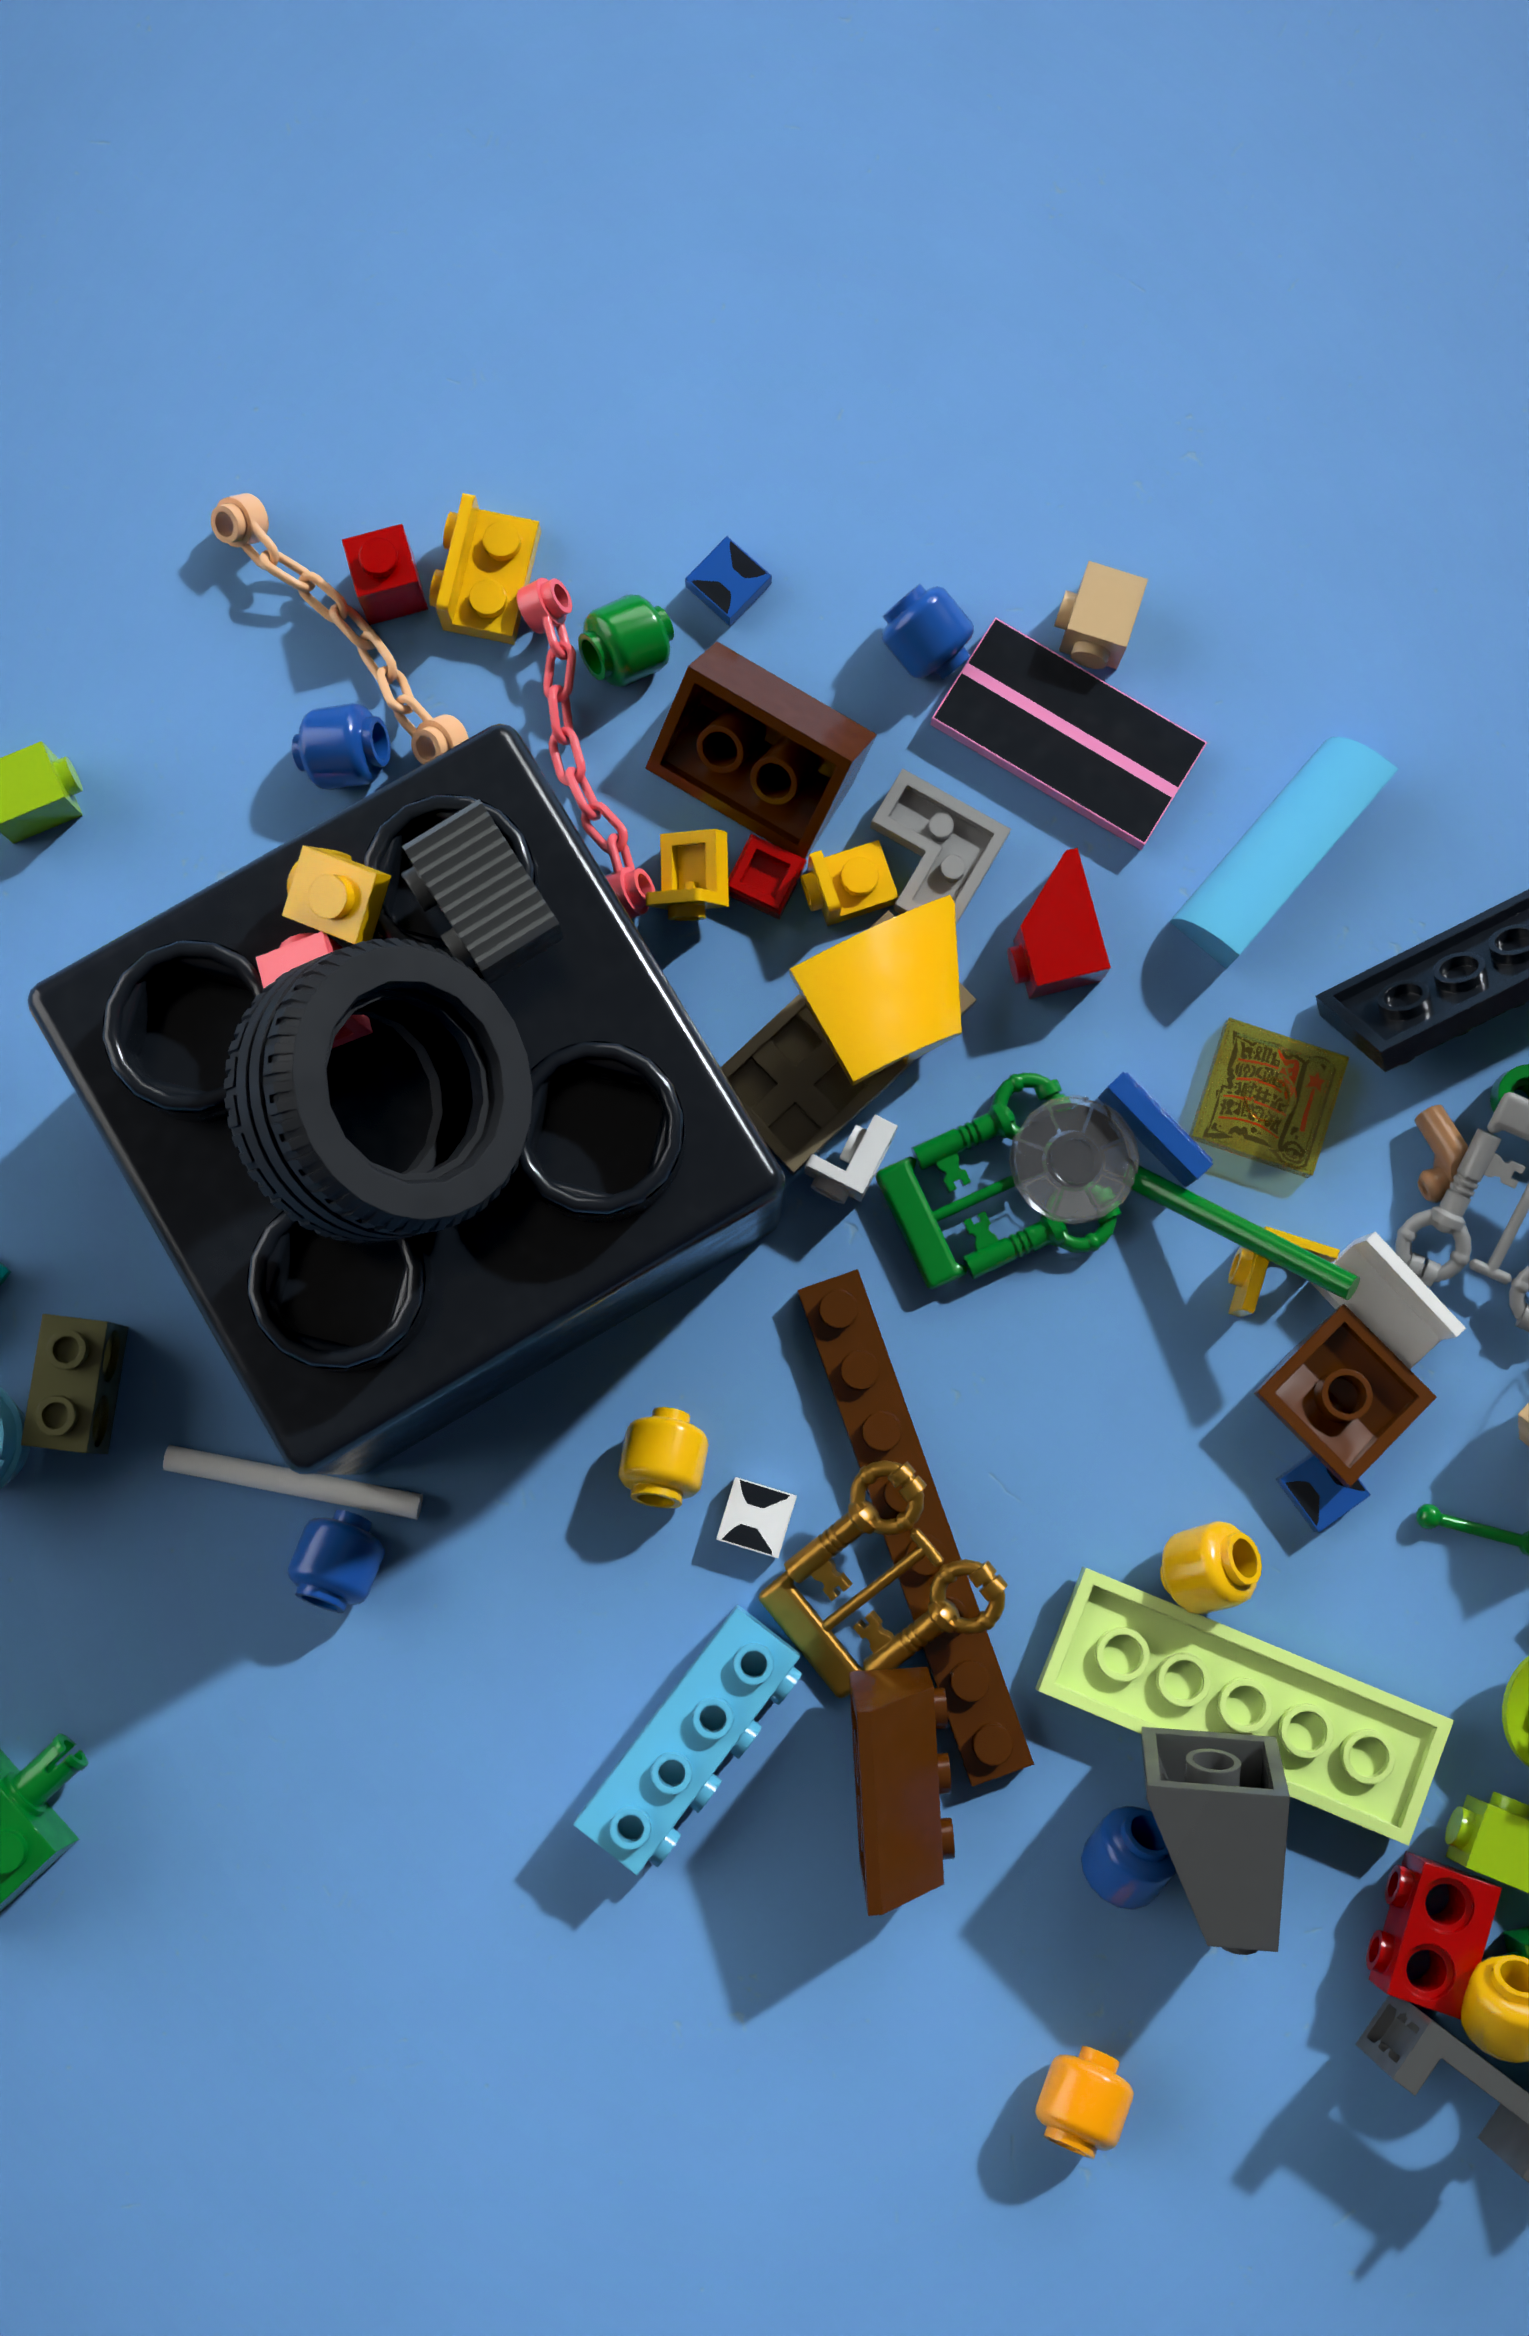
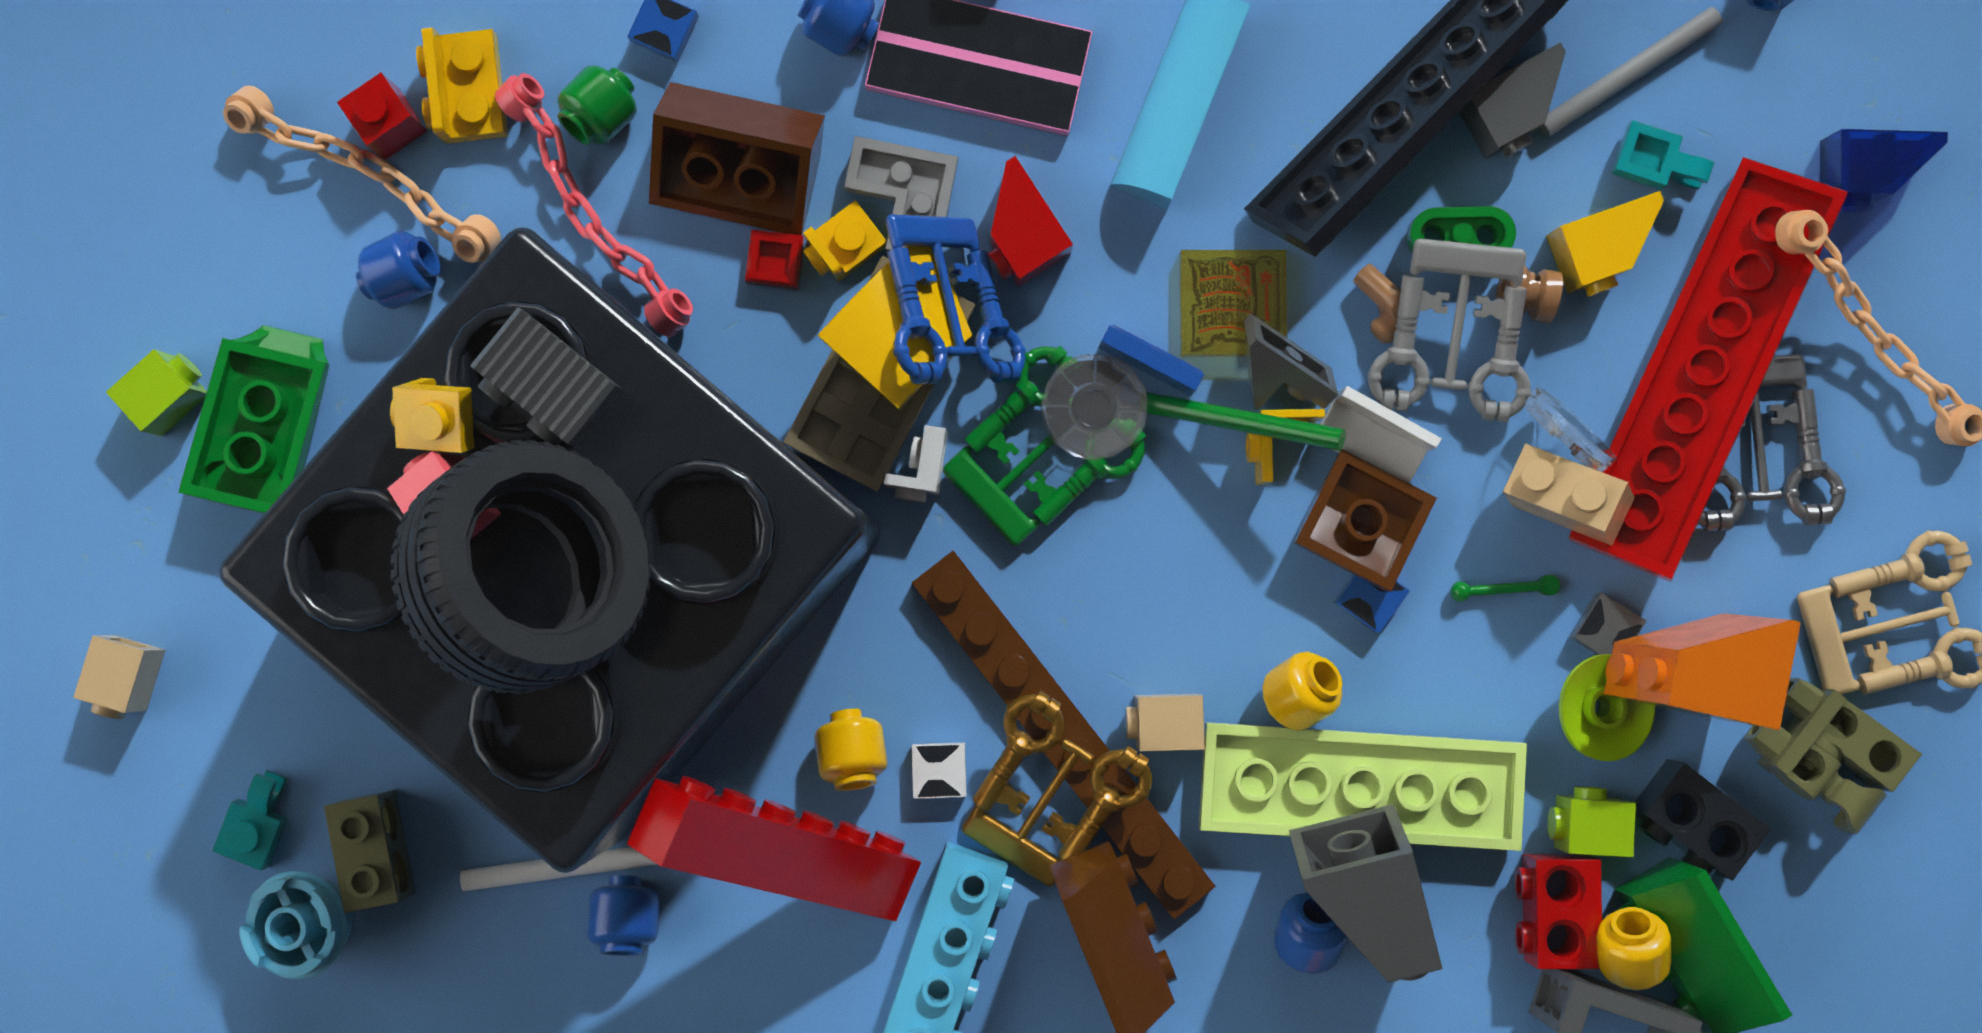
camera: 20 degrees left, 5 degrees up
(124, 855) = (256, 419): none -> green slope
(540, 1536) = (772, 849): none -> red brick
(692, 874) = (715, 279): yellow bracket -> none
(980, 913) = (950, 233): none -> blue piece
(1039, 1550) = (1166, 722): none -> tan brick
(1301, 1178) = (1280, 361): none -> dark grey slope

